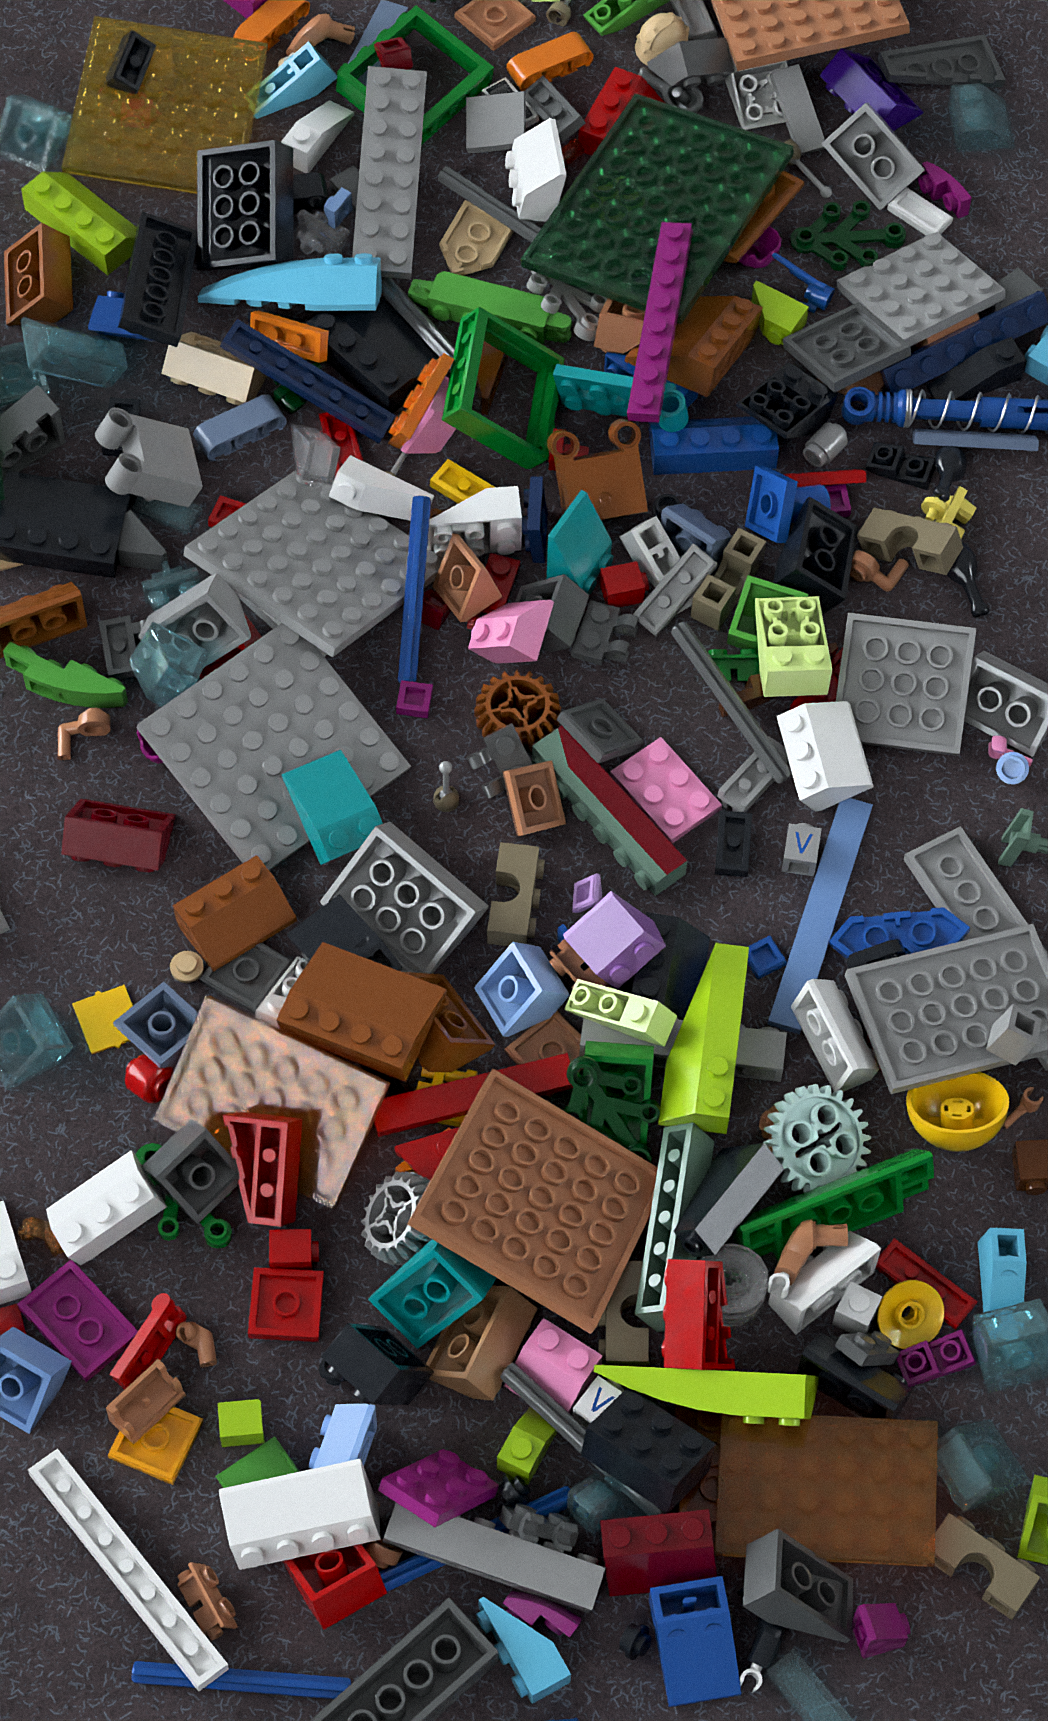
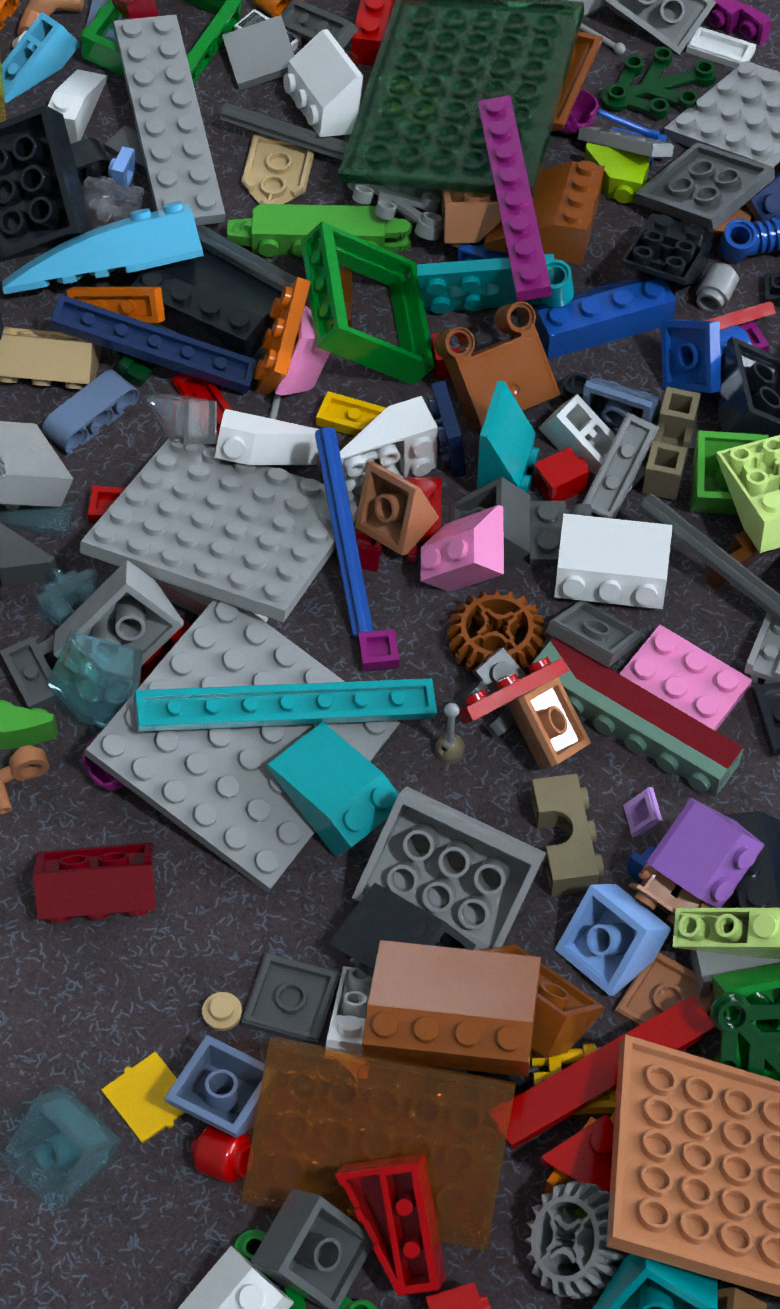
camera: 15 degrees left, 5 degrees down
(234, 913) = (258, 936): dark orange slope -> none
(313, 727) = (284, 704): none -> teal plate
(506, 761) = (511, 689): none -> plate
(636, 672) = (613, 561): none -> white slope
(745, 663) = (721, 526): green hinge -> none
(791, 287) = (626, 141): none -> light grey tile

